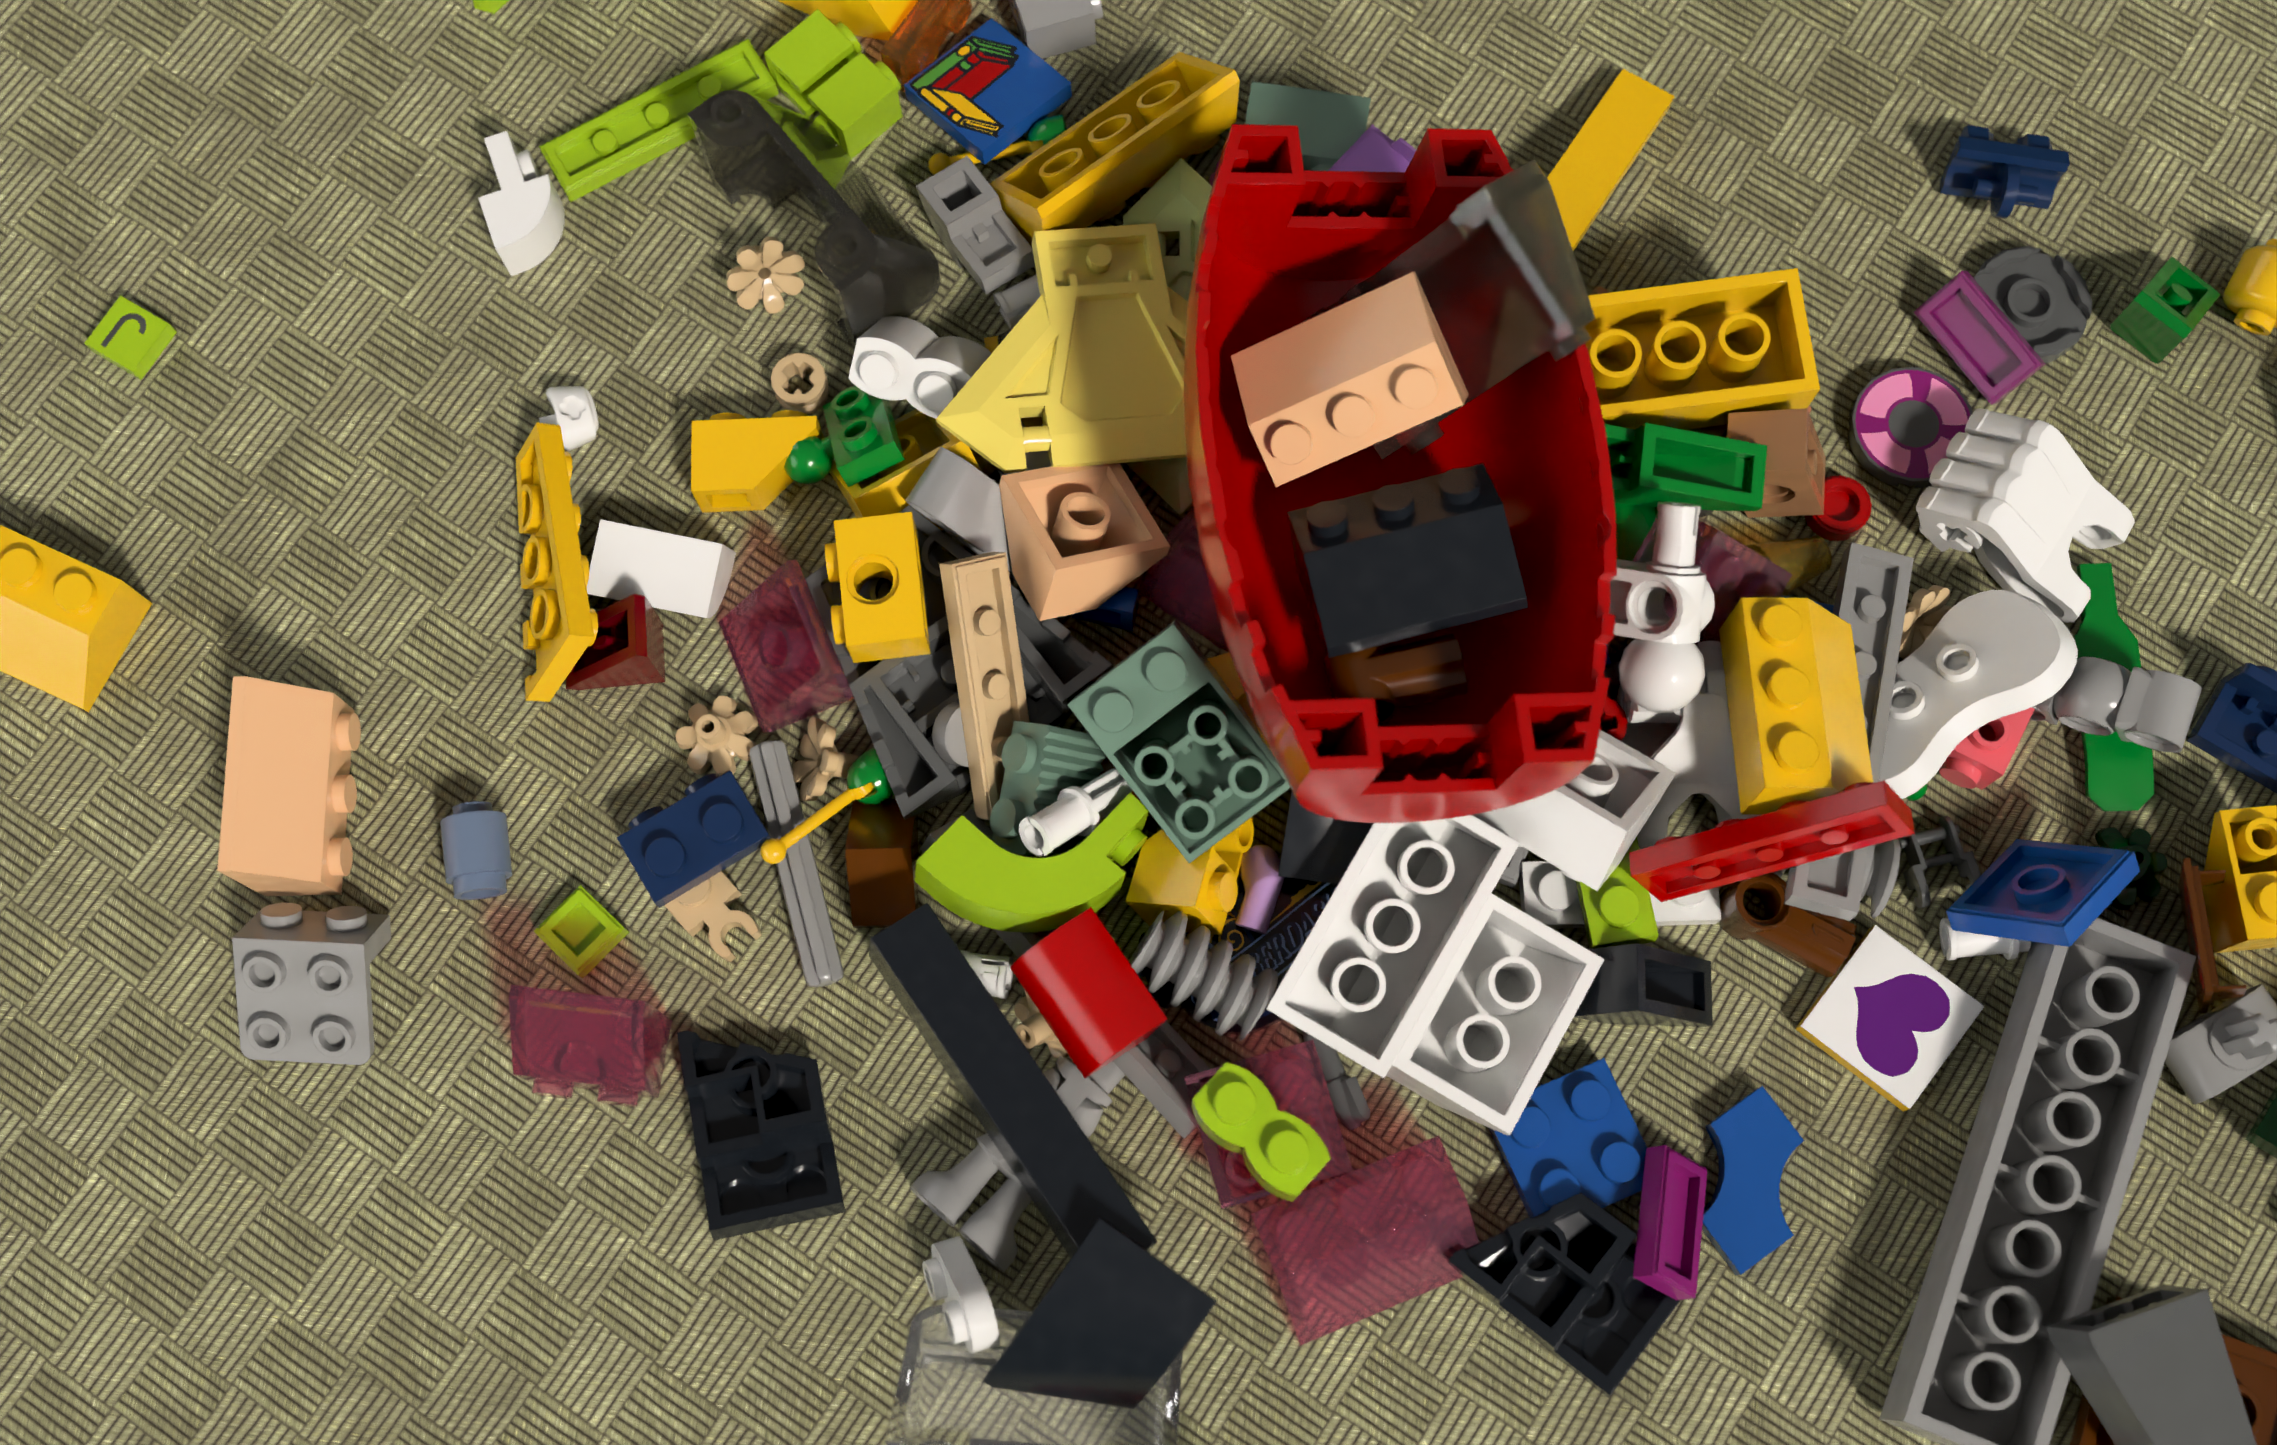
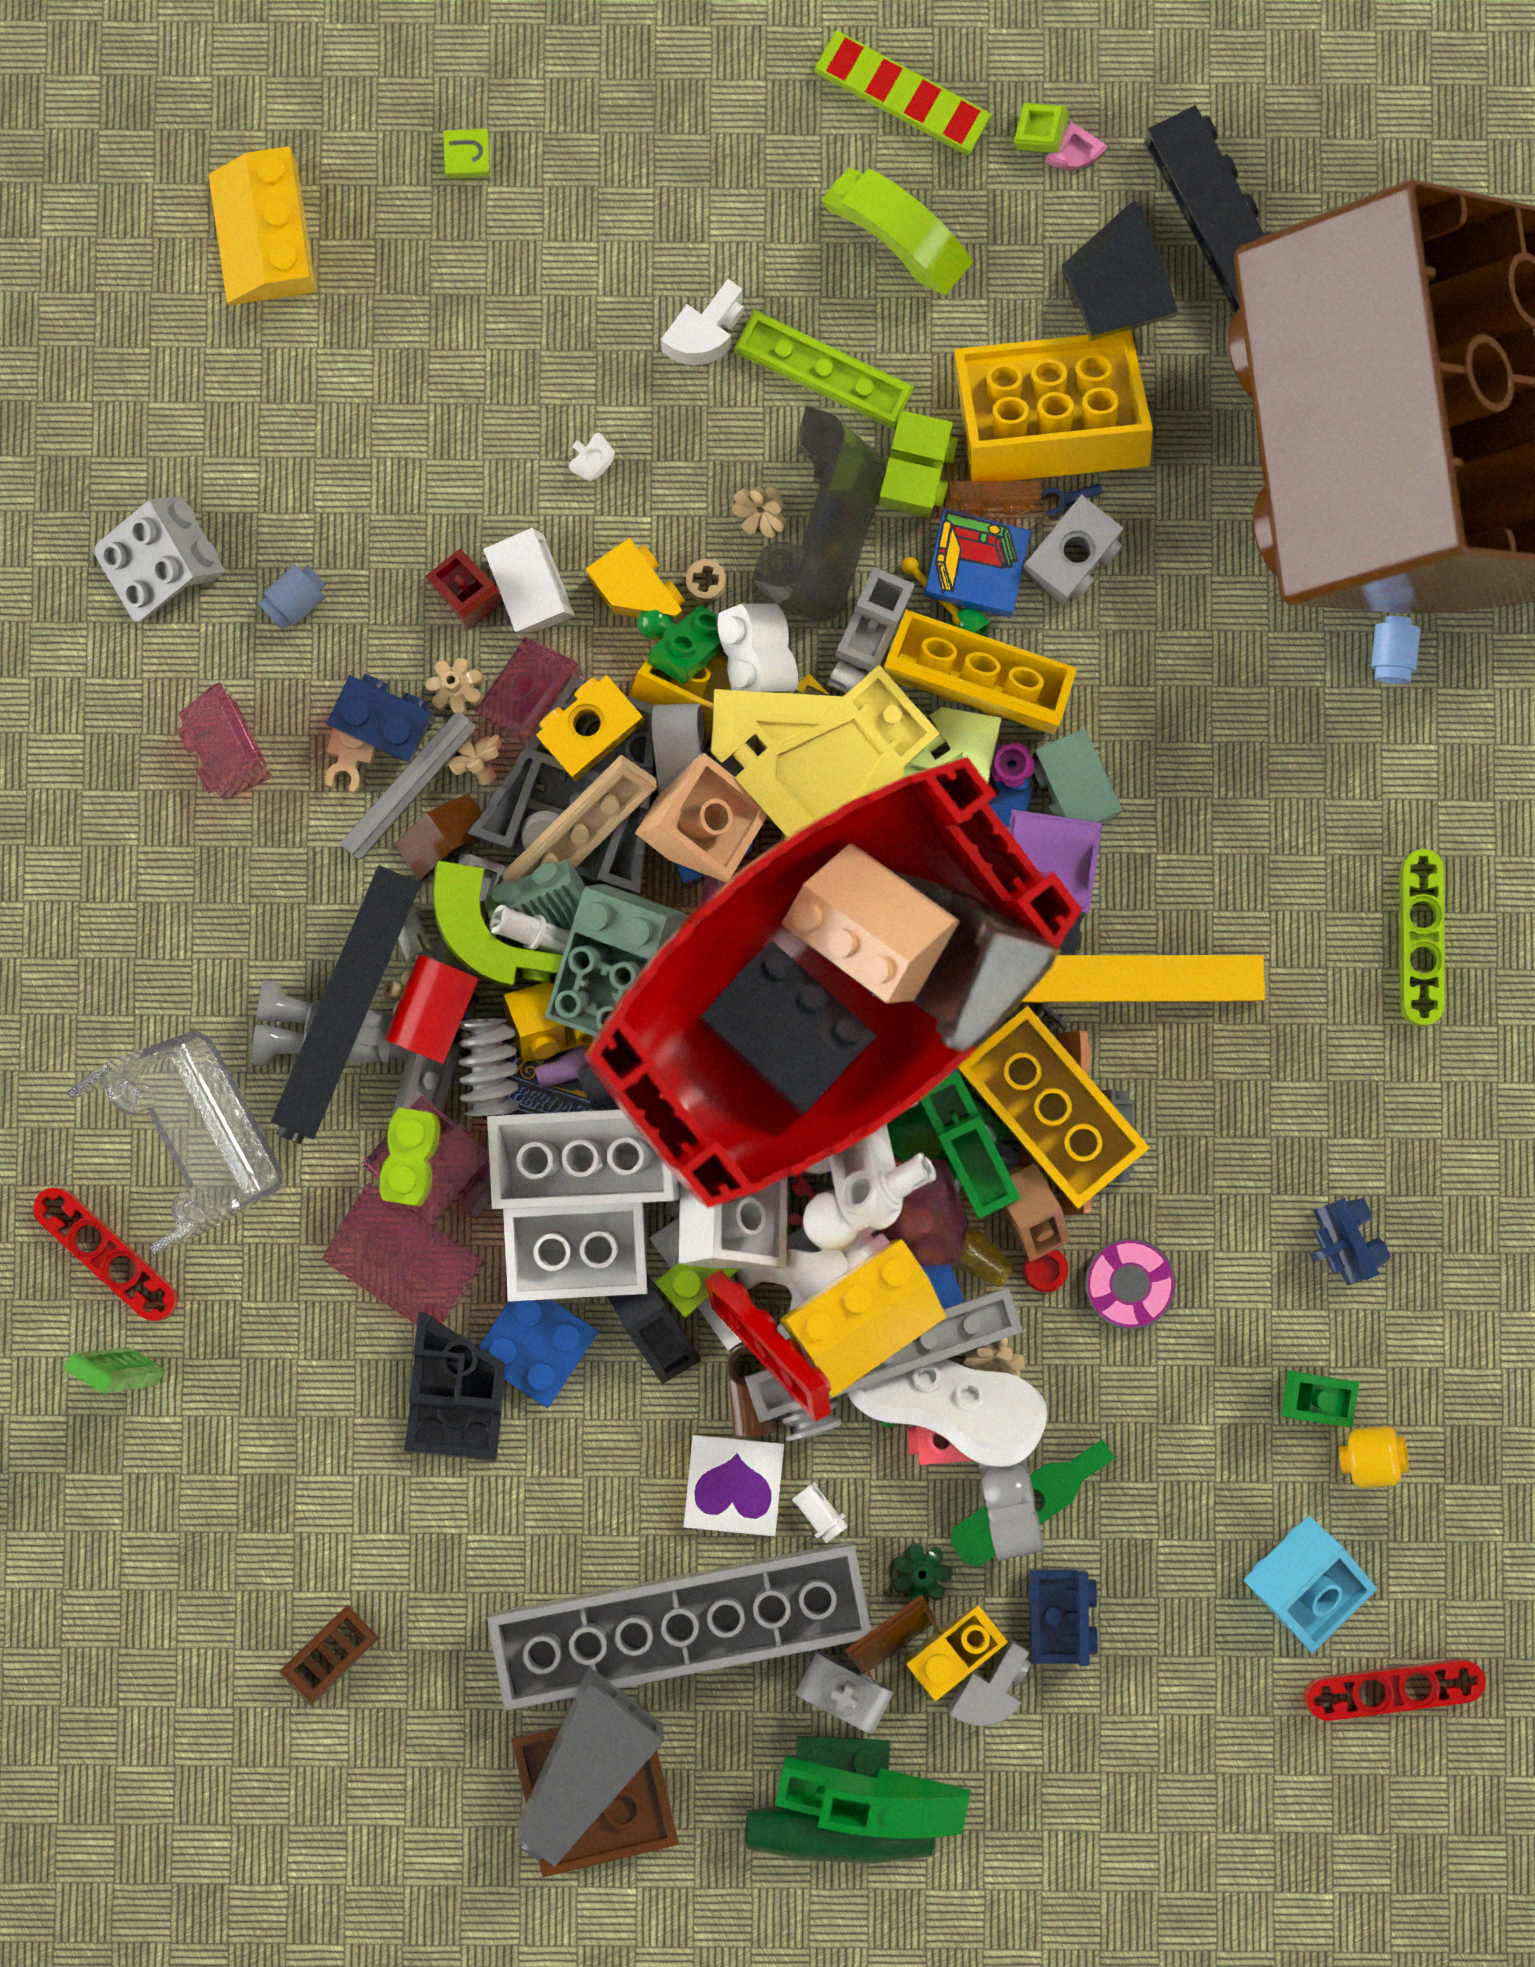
camera: 55 degrees right, 10 degrees up
(288, 789) = (255, 465): light nougat slope -> none
(552, 562) = (491, 514): yellow wing -> none
(581, 931) = (288, 689): lime tile -> none
(759, 1136) = (238, 874): black slope -> none
(865, 783) = (477, 794): hinge -> none
(967, 1302) = (212, 1060): white plate -> none
(1104, 1325) = (251, 1139): black slope -> none
(1399, 674) = (707, 1059): reddish brown piece -> none
(1670, 1223) = (523, 1425): magenta tile -> none
(1745, 1210) = (561, 1467): blue tile -> none
(1954, 855) = (862, 1445): dark grey piece -> none
(1979, 337) = (1217, 1291): magenta tile -> none
(2018, 502) = (1105, 1378): white piece -> none
(2039, 297) = (1266, 1310): dark grey tile -> none
(2043, 891) = (857, 1527): blue tile -> none

